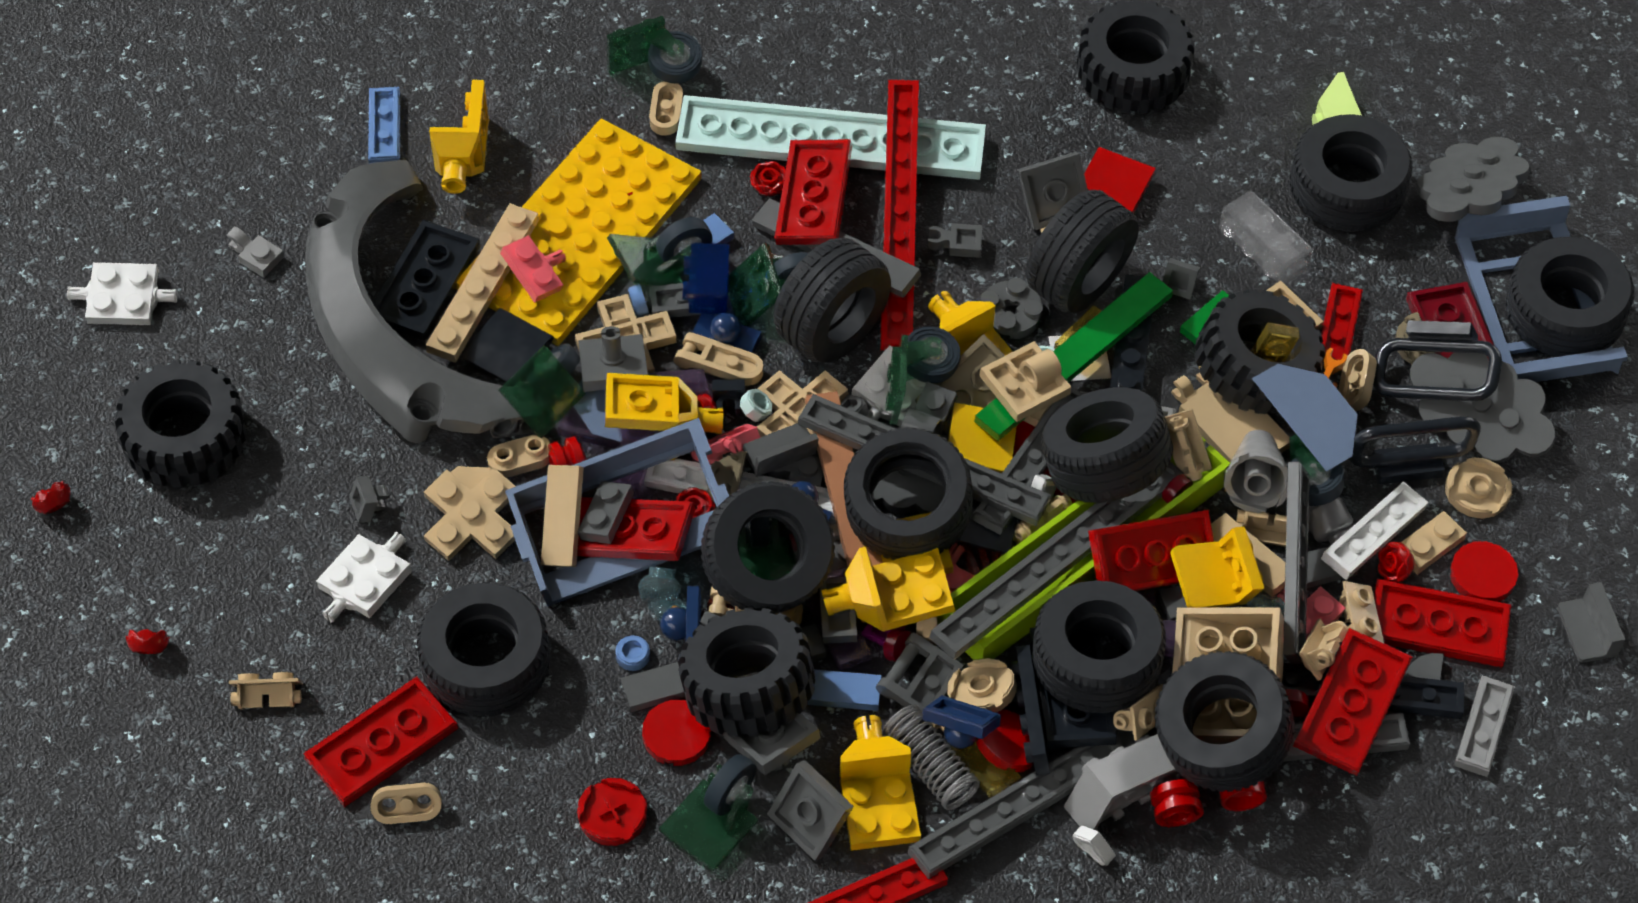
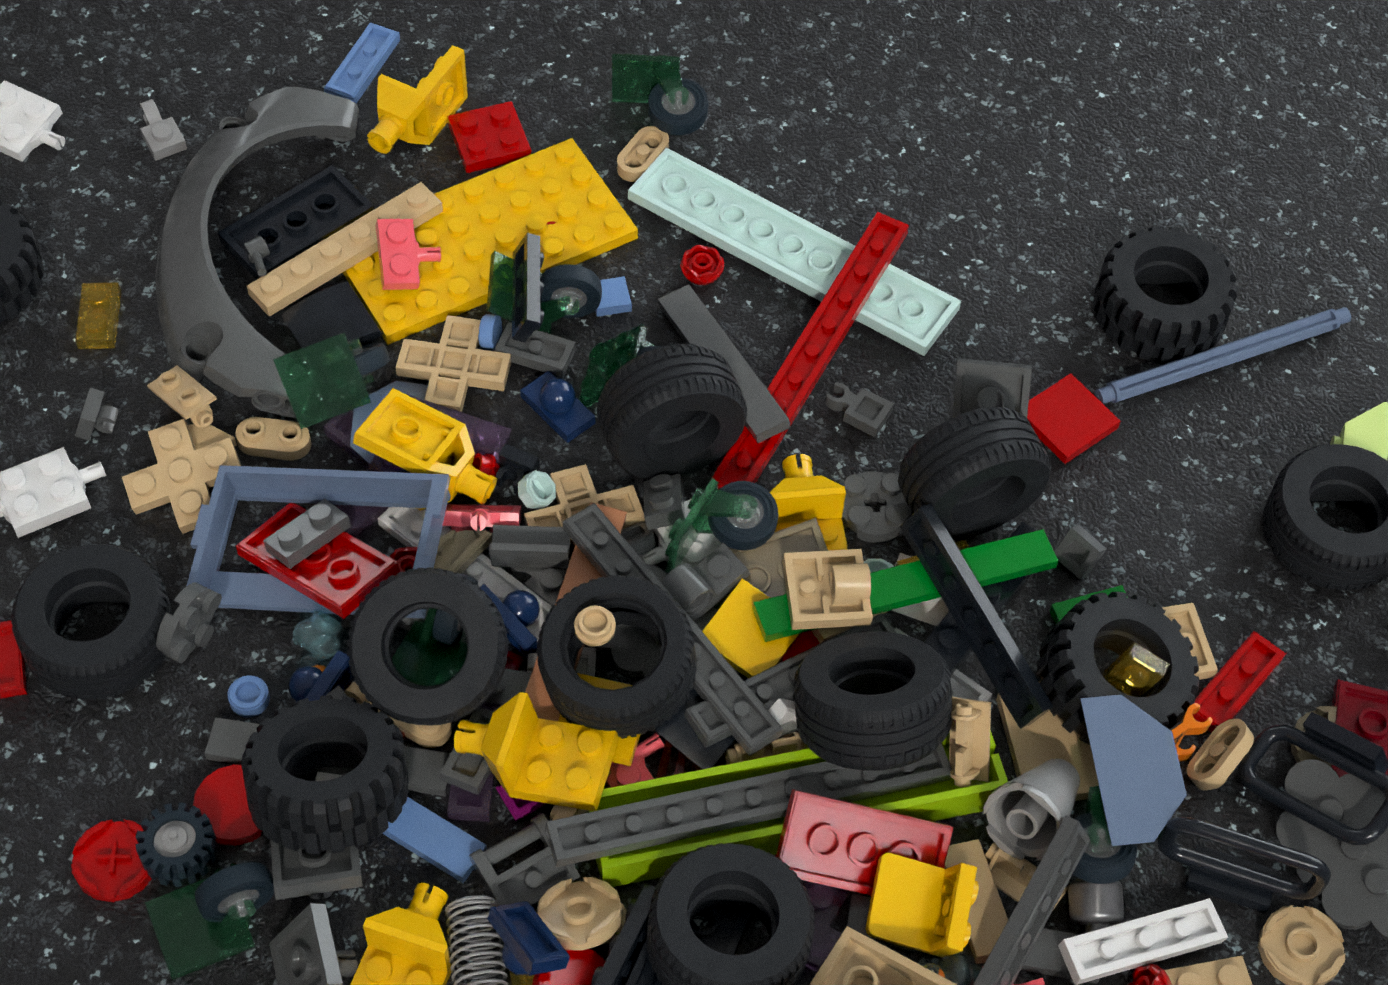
camera: 25 degrees right, 0 degrees up
(309, 421) = (98, 315): none -> clear yellow plate
(414, 316) = (257, 250): none -> dark grey hand
(433, 451) = (184, 396): none -> tan hinge
(530, 144) = (488, 136): none -> red plate
(560, 617) = (189, 624): none -> dark grey plate
(562, 515) = (257, 517): tan tile -> none
(566, 455) = (310, 457): red wheel -> none
(610, 355) = (418, 376): dark grey tile -> none
(654, 252) = (527, 288): none -> black plate
(659, 775) = (176, 844): none -> black wheel
(707, 278) = (567, 337): clear blue brick -> none
(719, 359) = (534, 428): tan plate -> none
(813, 191) = (733, 295): red tile -> none
(857, 372) = (663, 500): none -> dark grey plate
(887, 476) = (595, 626): none -> tan plate
(895, 643) = (520, 815): dark red tile -> none
(1140, 354) = (976, 616): none -> black plate
(1176, 487) = (933, 783): dark red tile -> none
(1200, 86) = (1222, 355): none -> sand blue piece
(1265, 237) = (1203, 549): clear brick -> none

